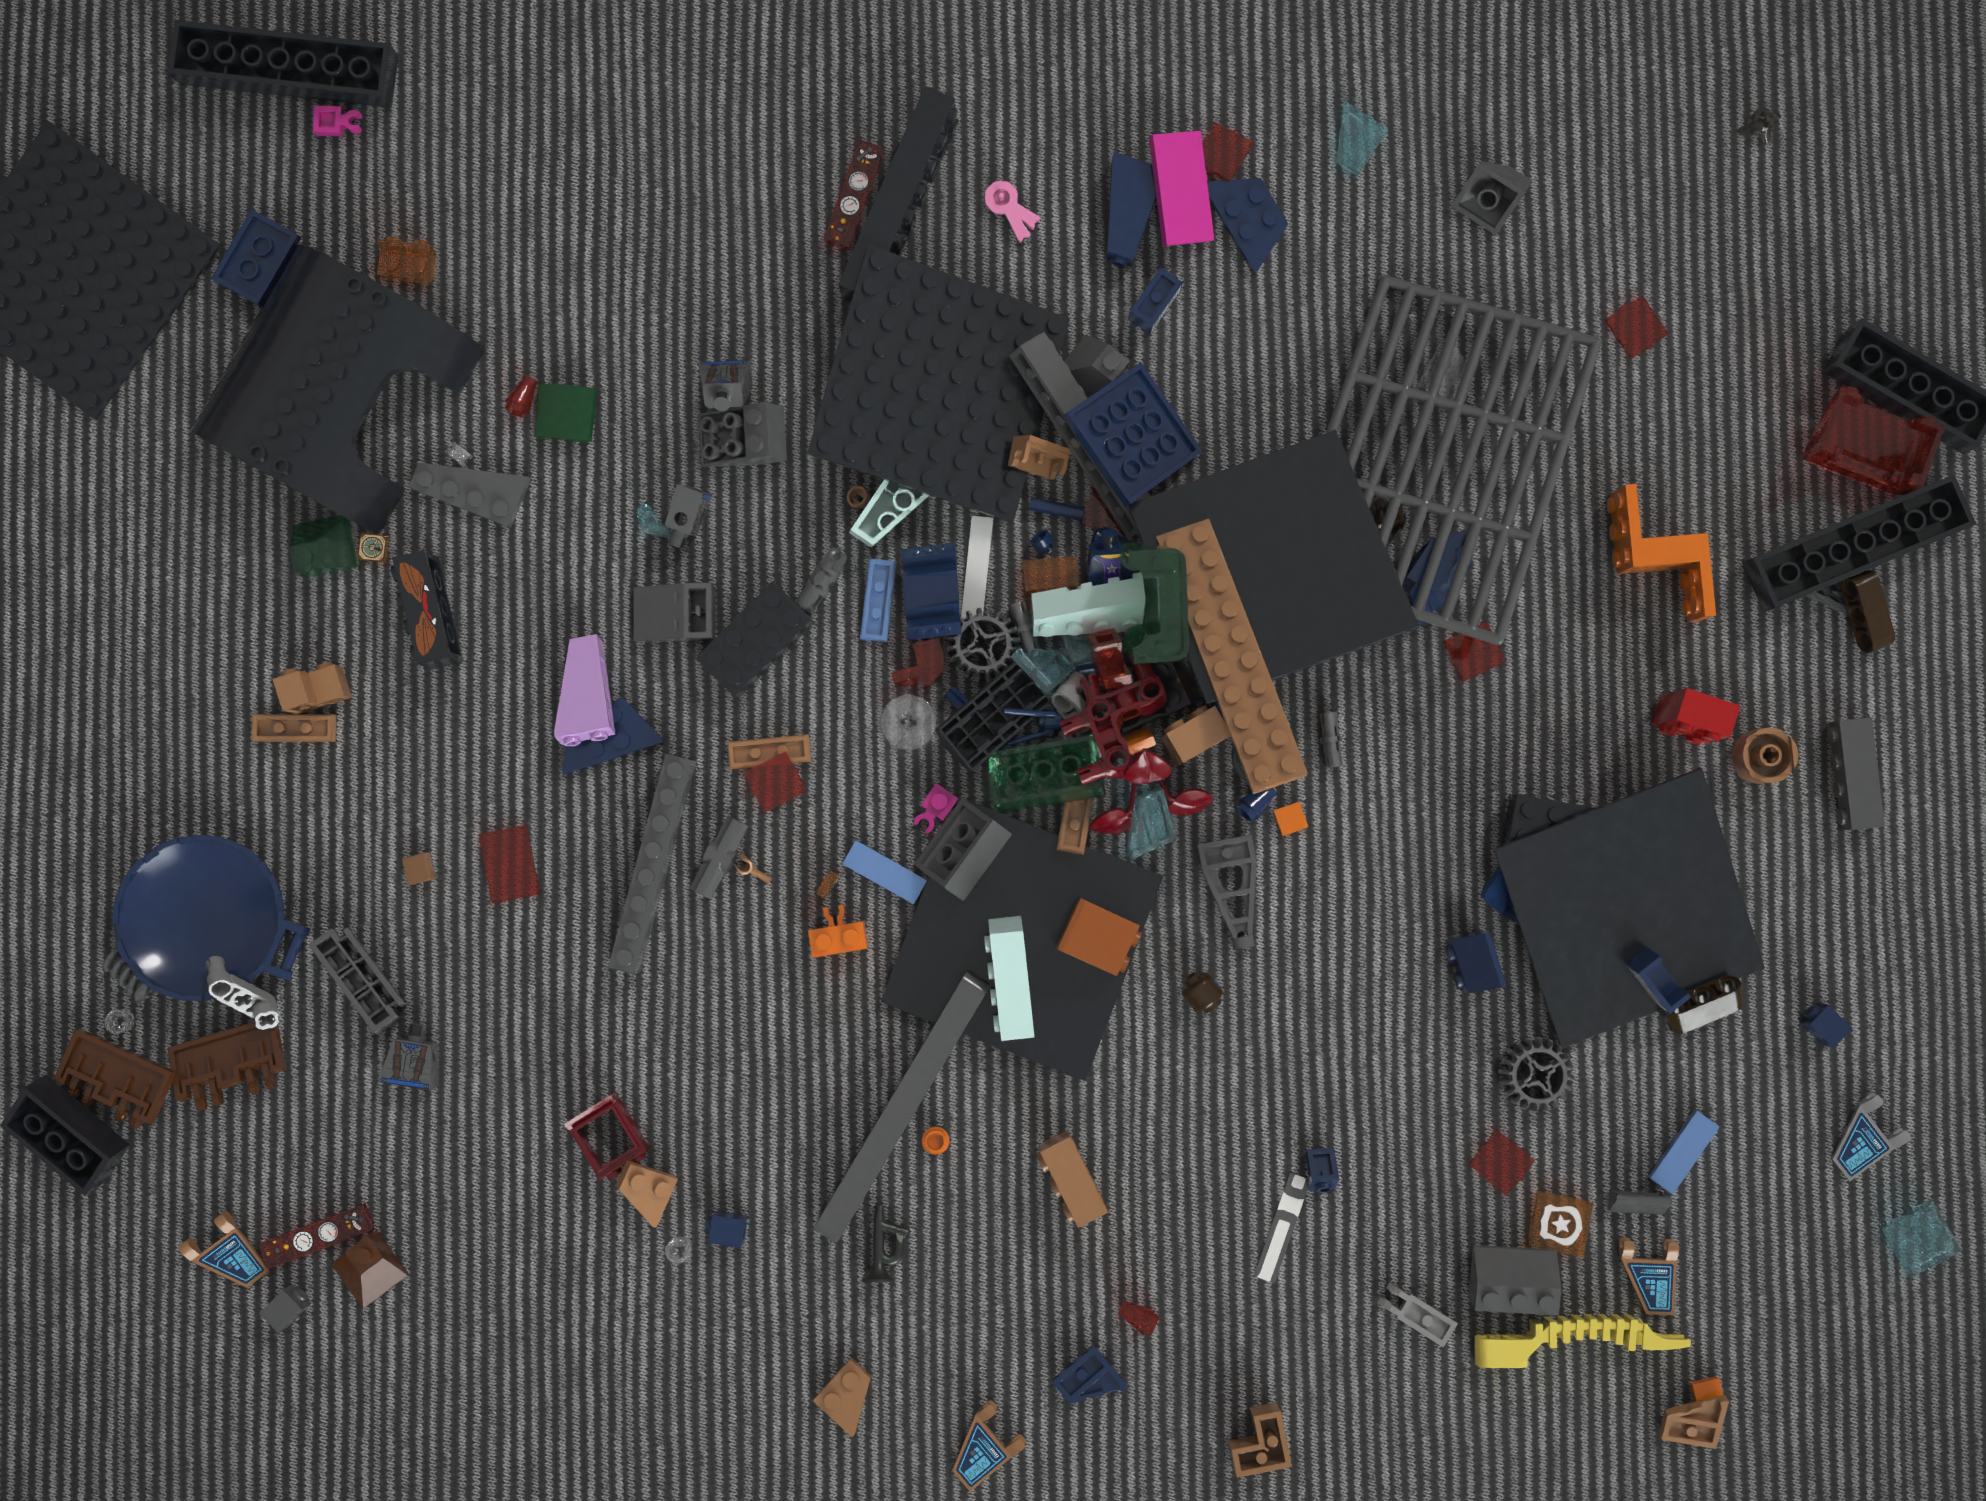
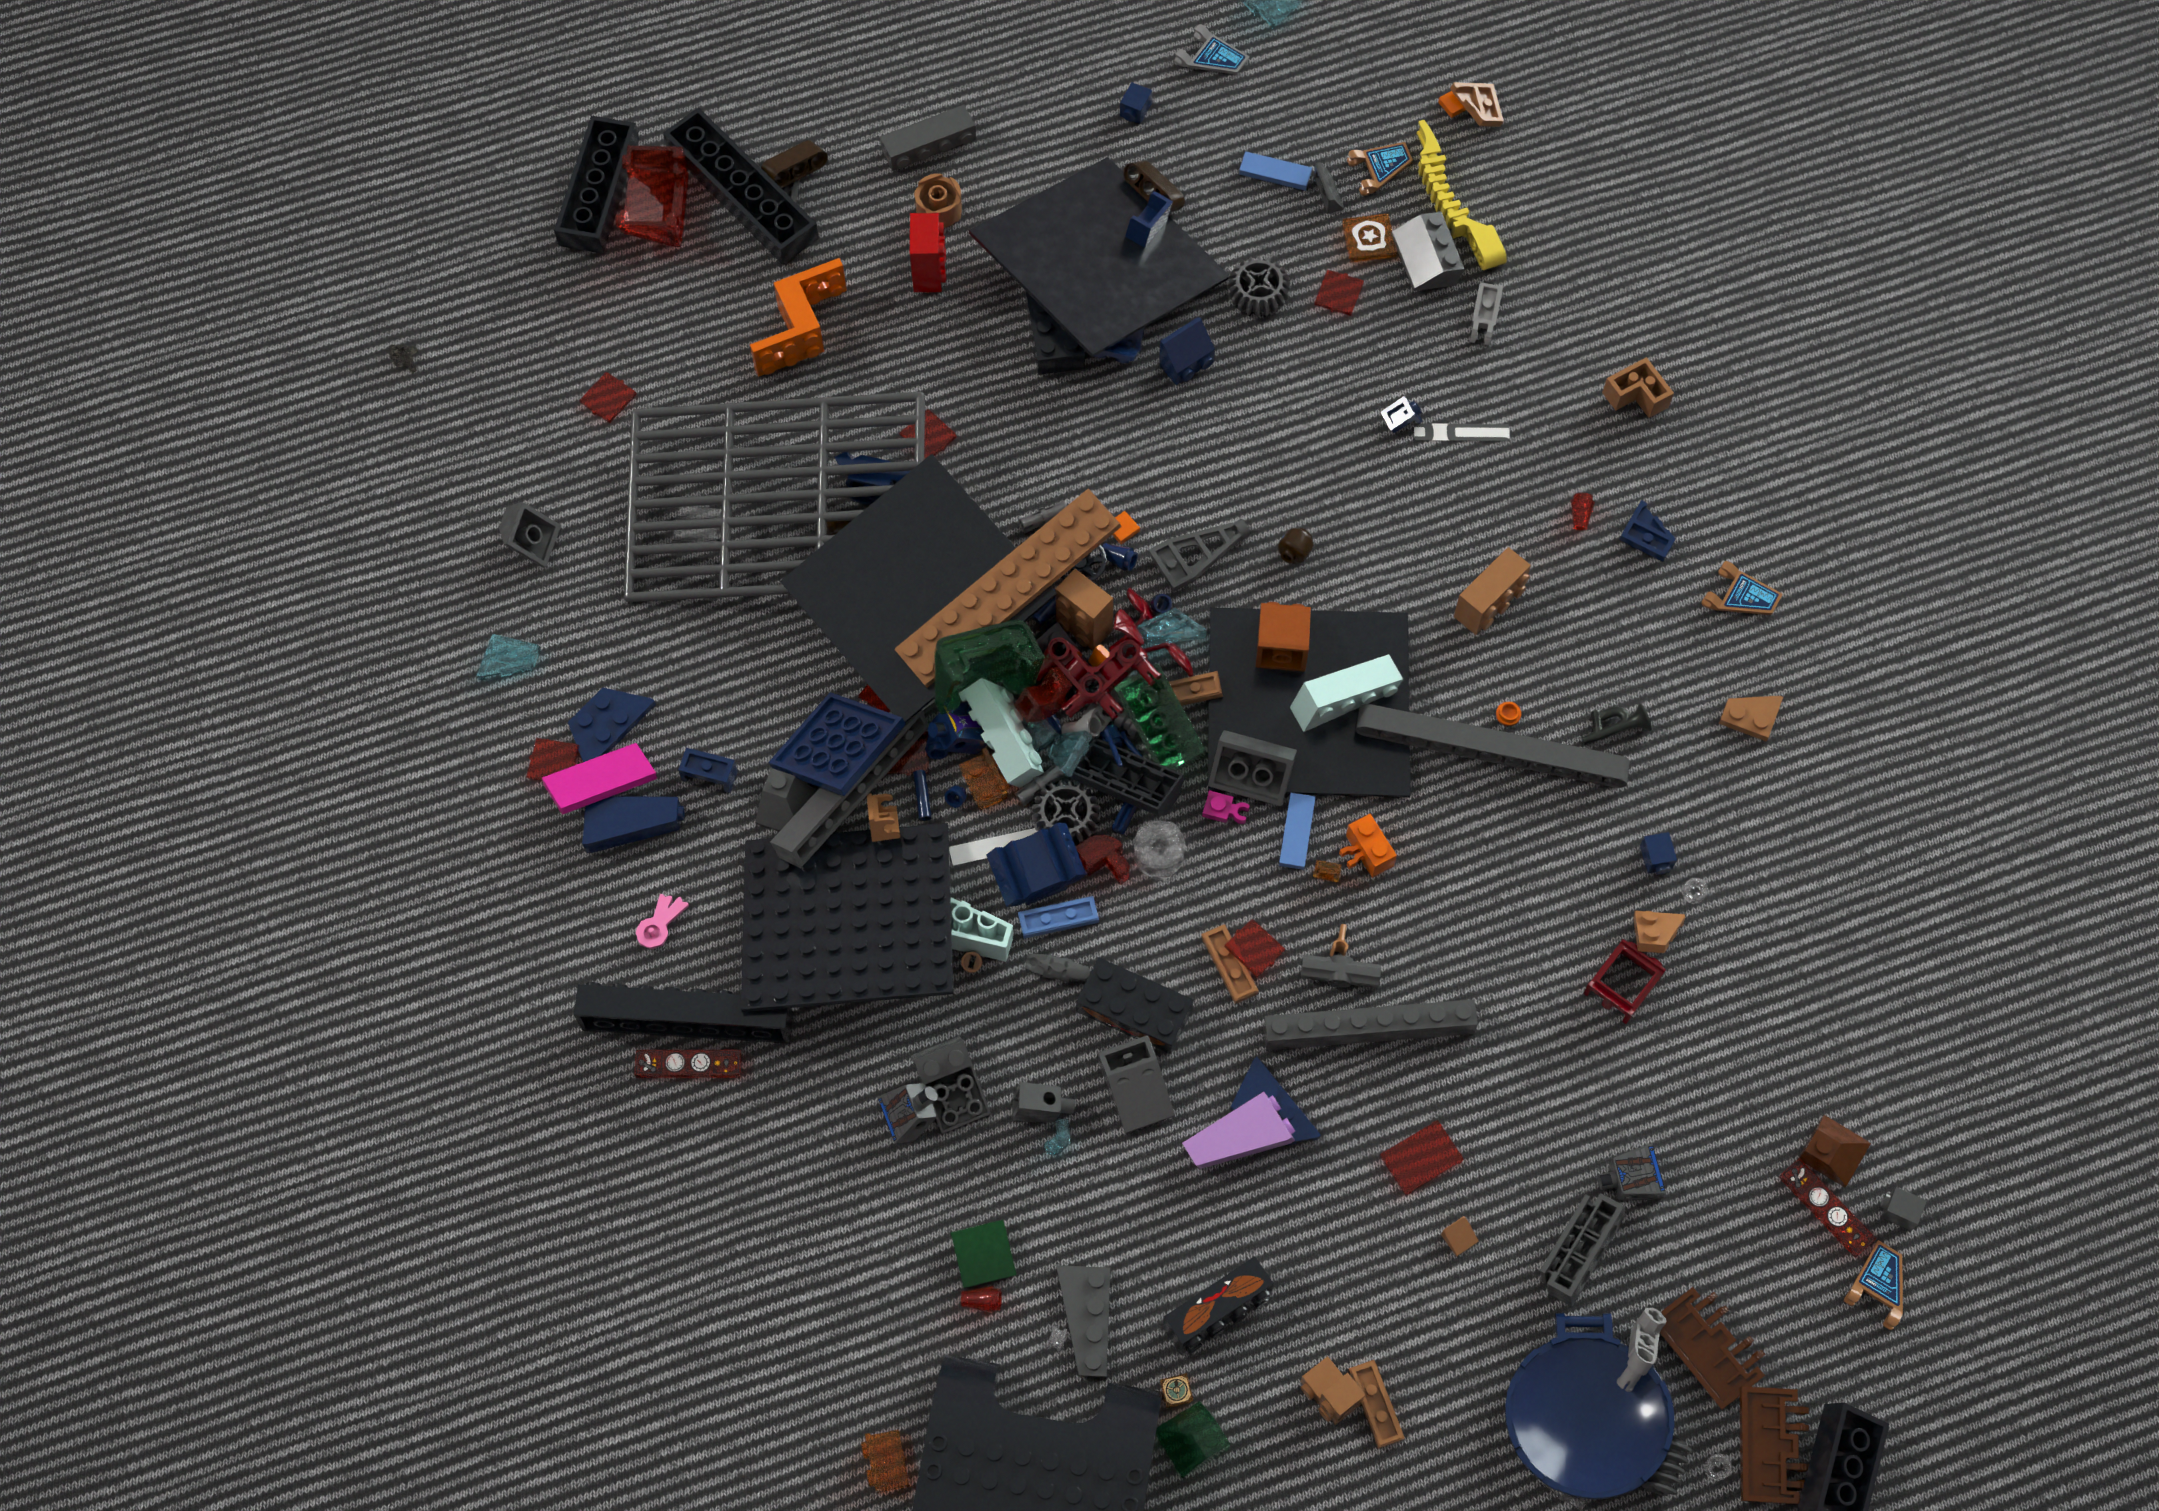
camera: 110 degrees left, 20 degrees down
(1182, 828) = (1163, 606): none -> dark blue hinge

